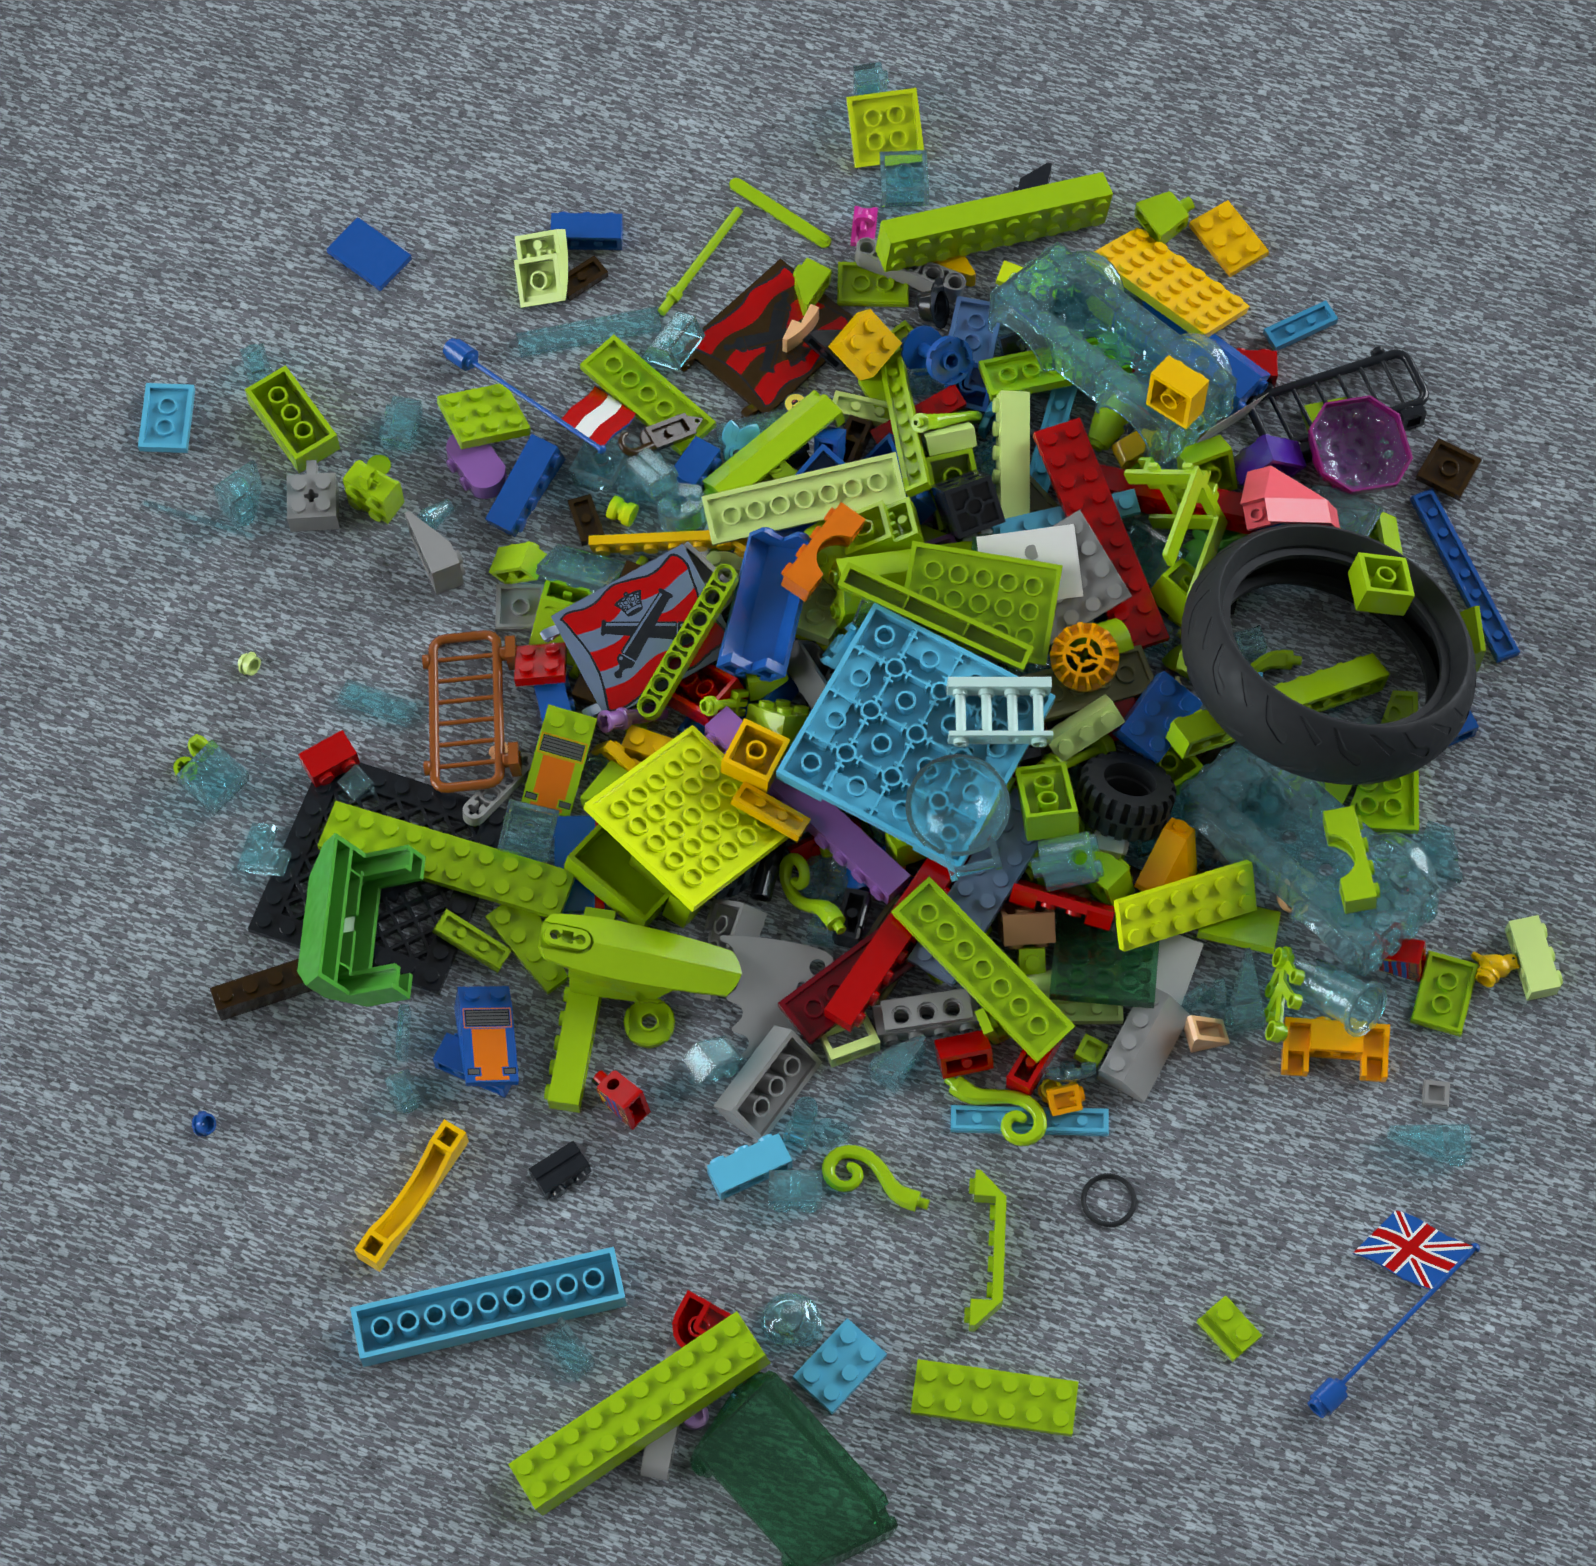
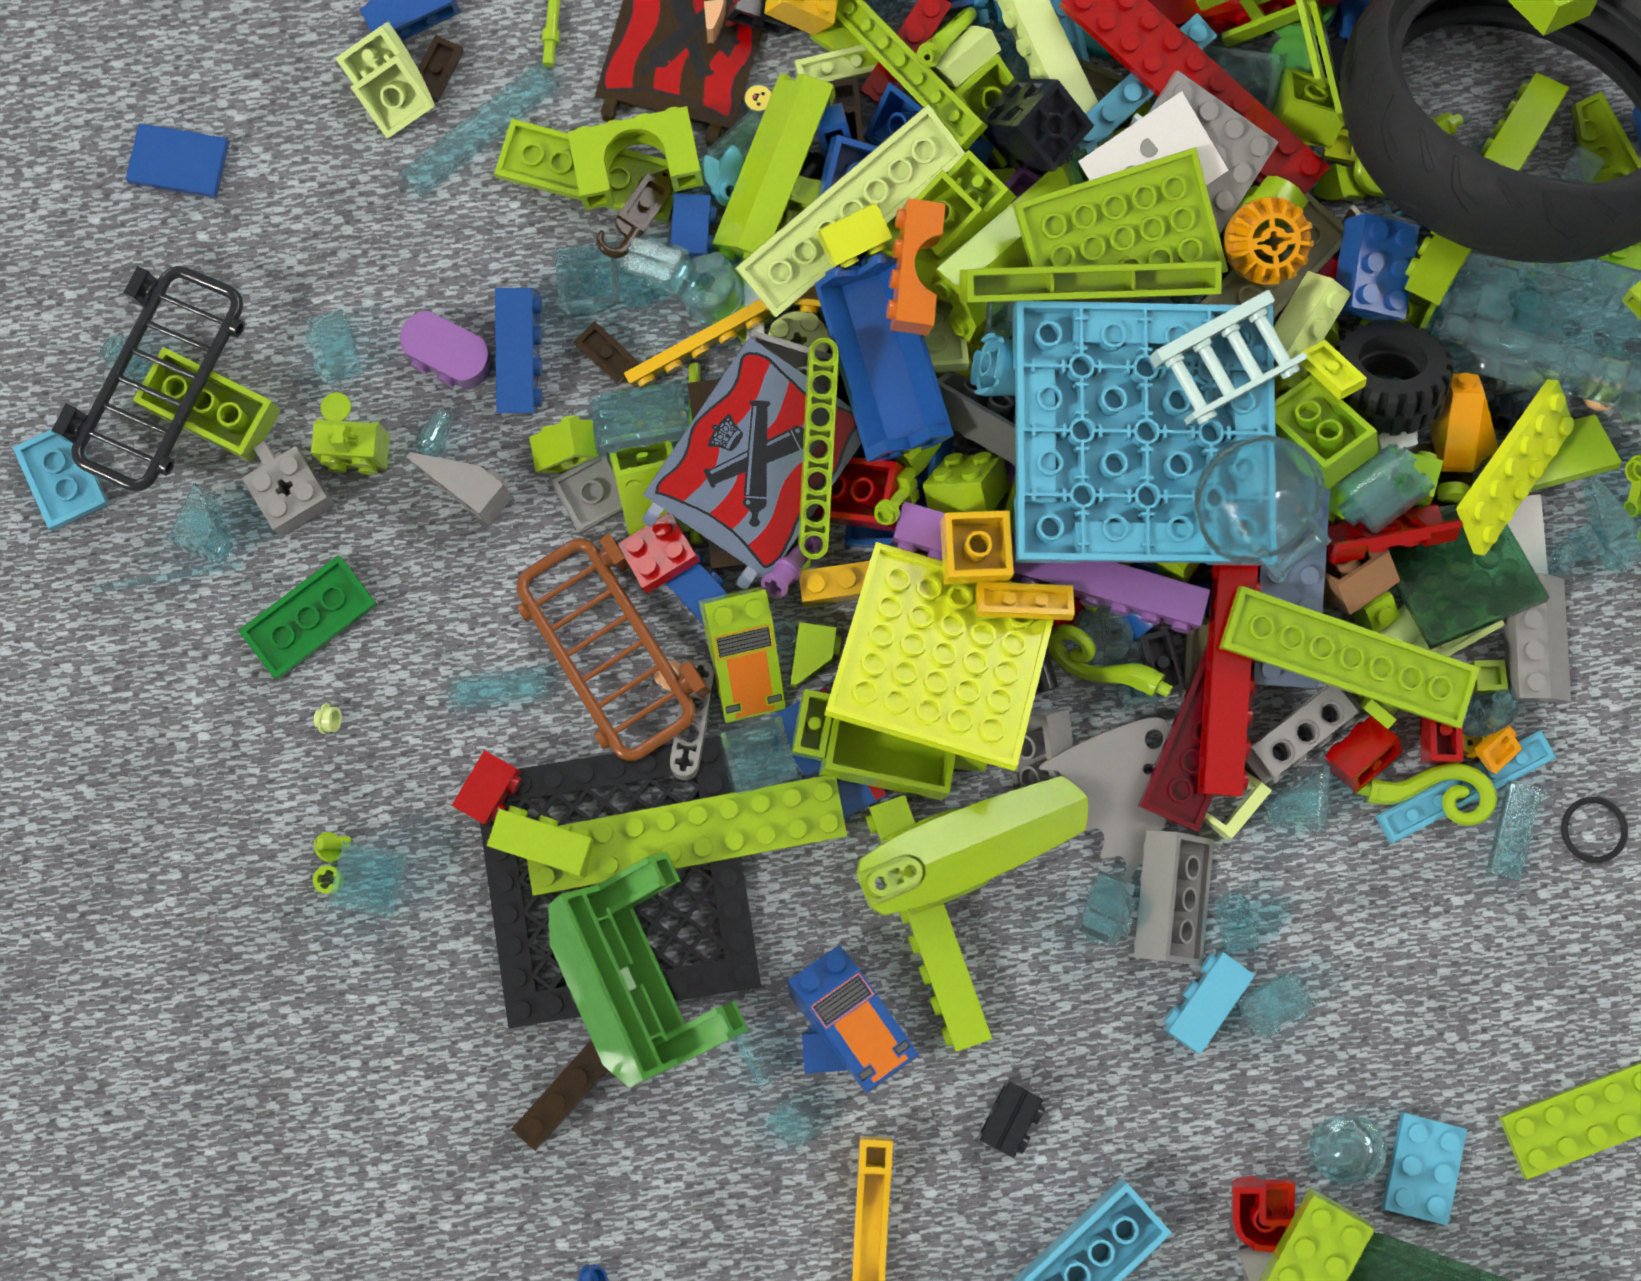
camera: 30 degrees left, 15 degrees up
(258, 854) = (468, 937): clear light blue plate -> none
(276, 591) = (308, 617): none -> green plate
(295, 325) = (148, 293): none -> black bar
(344, 807) = (541, 840): none -> lime brick
(355, 782) = (532, 797): clear light blue plate -> none
(471, 940) = (764, 910): lime tile -> none
(483, 415) = (423, 290): lime plate -> none
(522, 934) = (822, 873): lime wing -> none
(573, 831) = (811, 726): none -> lime brick
(593, 418) = (549, 231): flag -> none
(615, 751) = (799, 611): yellow wing -> none
(622, 511) = (640, 322): neon yellow wheel -> none
(622, 1097) = (1042, 1006): red torso -> none
(652, 1036) = (1019, 910): lime tile -> none
(659, 379) = (597, 145): none -> lime arch
(675, 341) = (585, 92): clear light blue slope -> none
(794, 513) = (854, 235): none -> neon yellow brick
(899, 1194) = (1379, 944): lime plant -> none
(987, 1192) = (1538, 1030): lime slope -> none
(1045, 1165) = (1513, 830): none -> clear light blue plate
(1077, 762) = (1333, 370): none -> neon yellow plate
(1205, 1033) = (1593, 594): light nougat slope -> none

